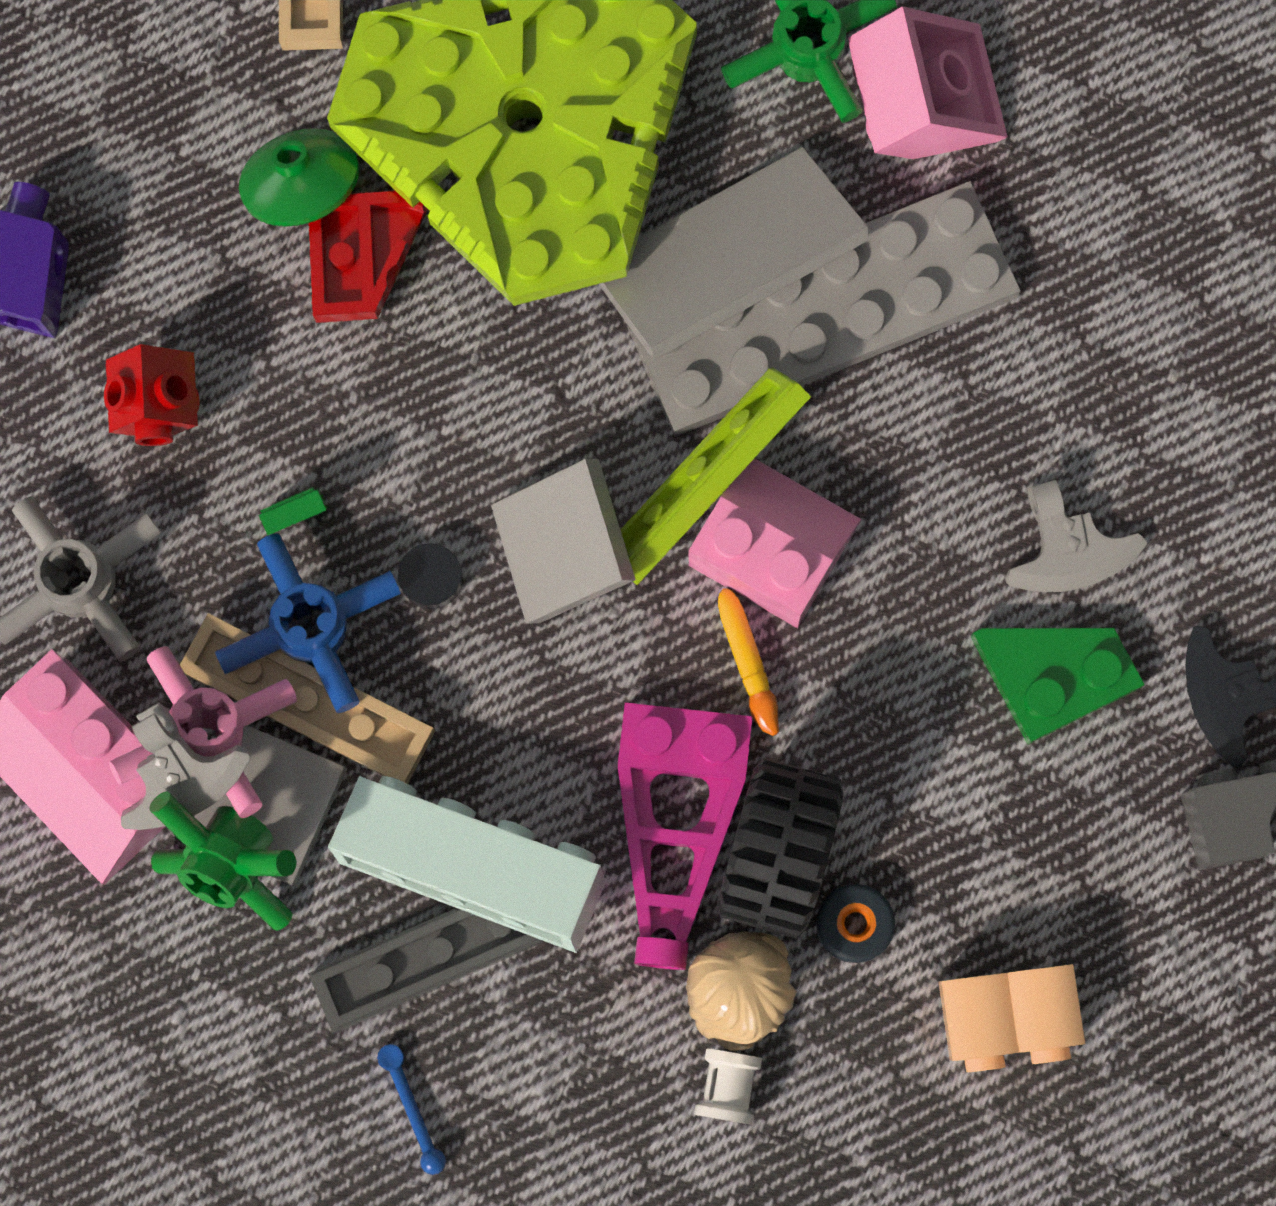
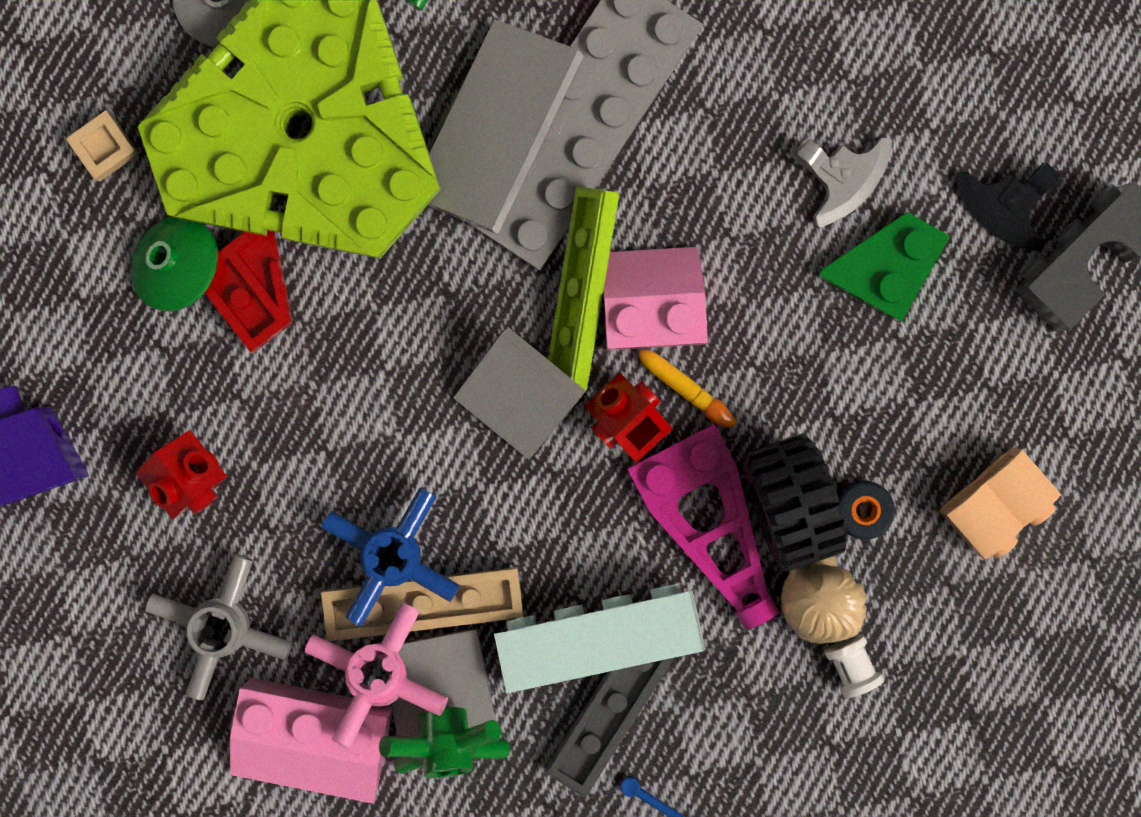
camera: 45 degrees left, 10 degrees up
(176, 768) = (379, 716): light grey piece -> none
(292, 510) = (328, 489): green tile -> none
(430, 576) = (445, 470): black tile -> none
(662, 642) = (623, 407): none -> red brick

